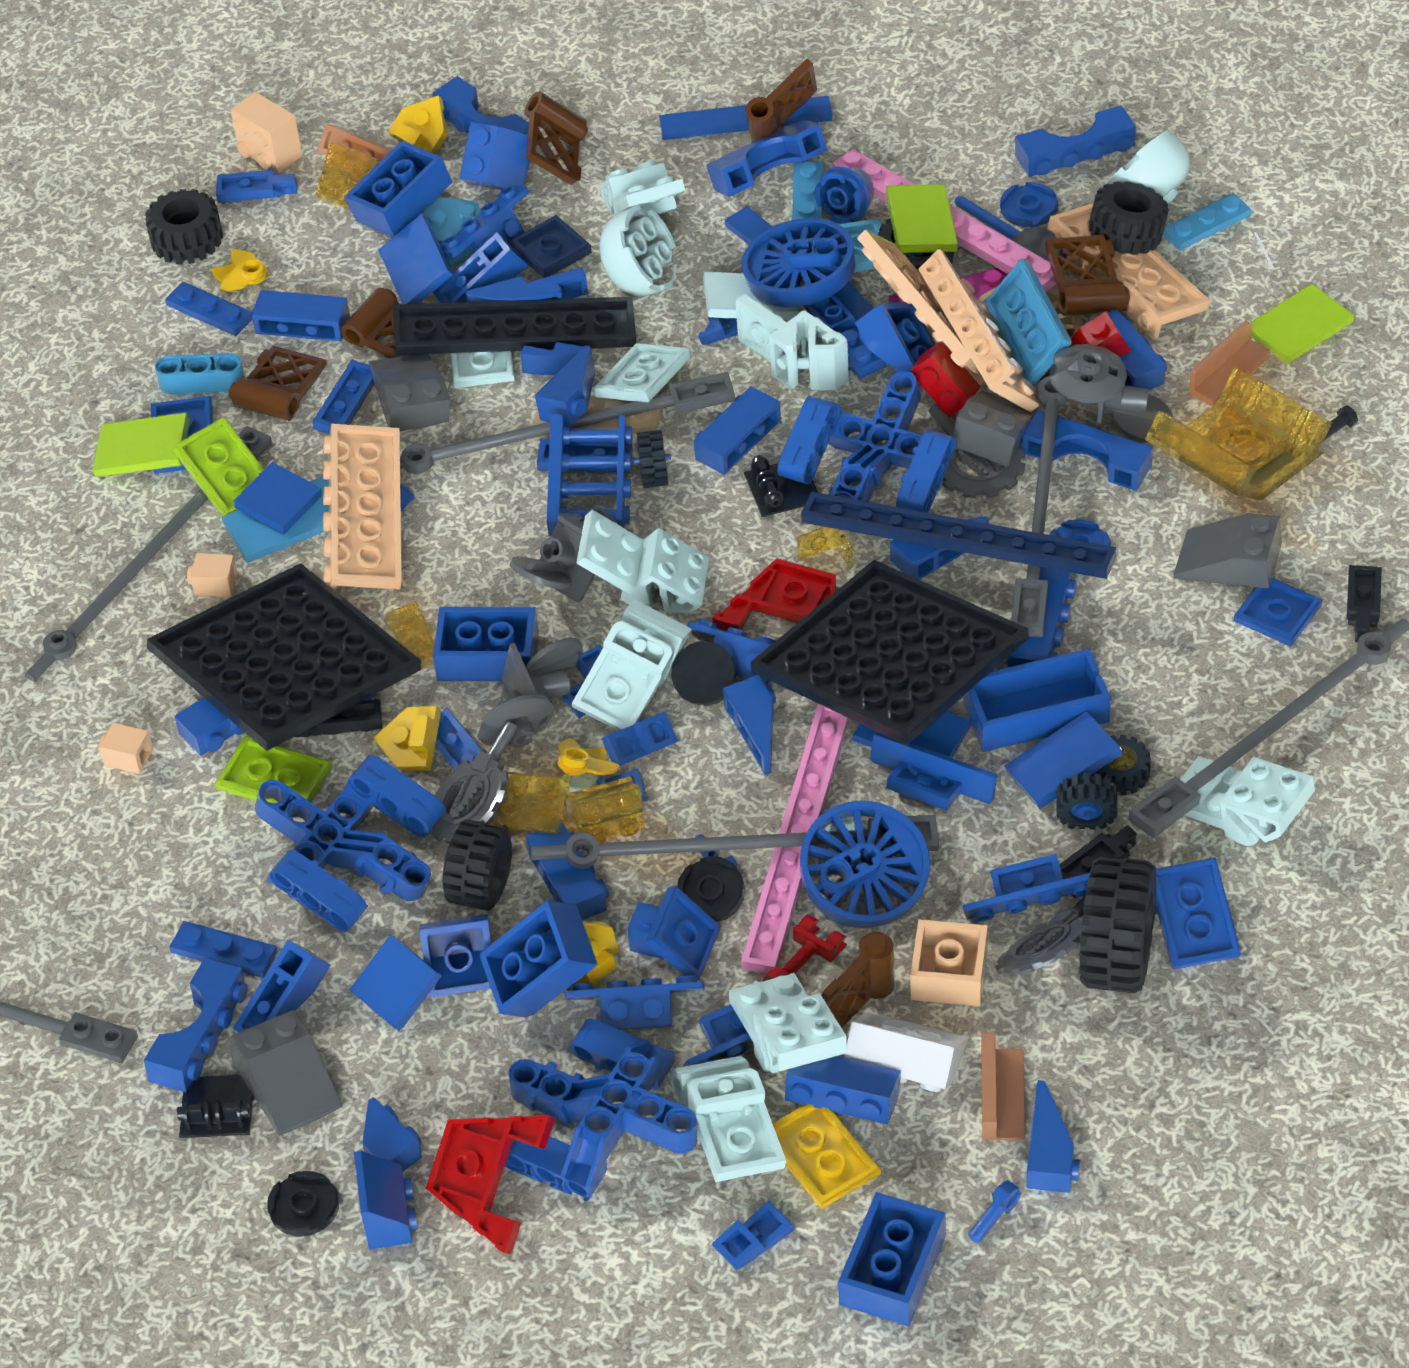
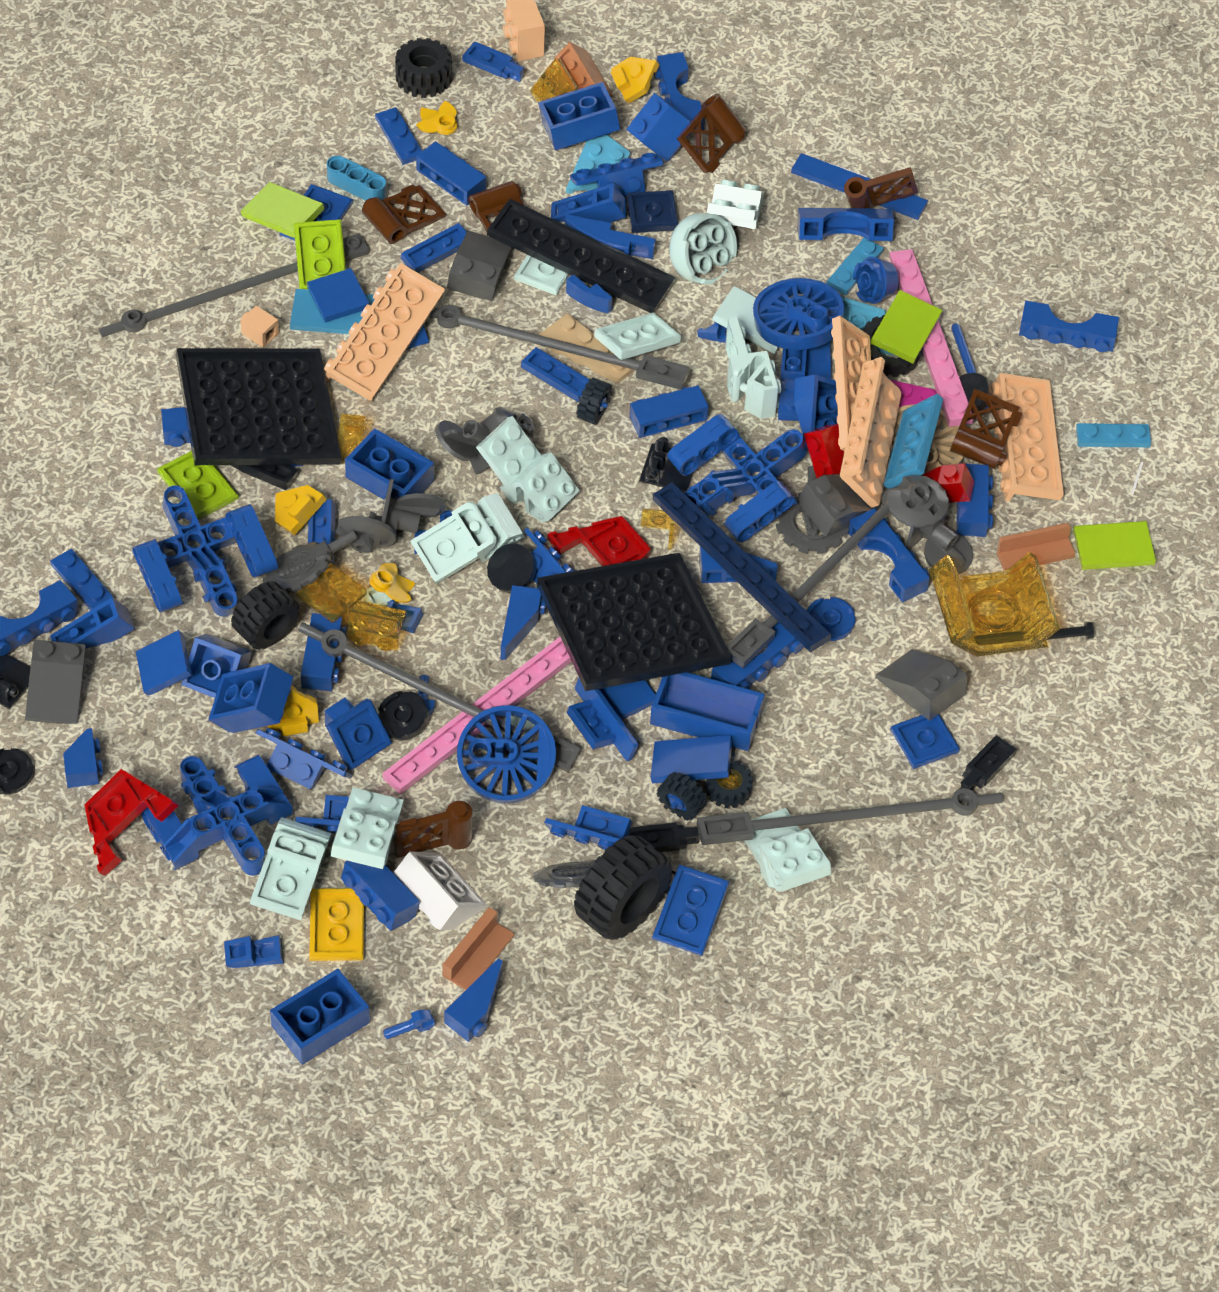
camera: 25 degrees right, 5 degrees up
(125, 747) = (120, 414): light nougat brick -> none
(384, 1201) = (48, 796): blue slope -> none
(415, 261) = (552, 175): blue tile -> none
(561, 462) = (530, 371): blue fence -> none
(568, 390) = (576, 322): blue slope -> none
(639, 739) = (437, 590): blue slope -> none
(746, 224) = (796, 266): blue tile -> none
(804, 935) = (438, 778): red bar -> none
(949, 962) = (508, 850): light nougat brick -> none
(1028, 212) = (1006, 360): blue tile -> none
(1129, 217) = (1049, 403): black tyre -> none
(1158, 165) = (1095, 379): light aqua cylinder -> none

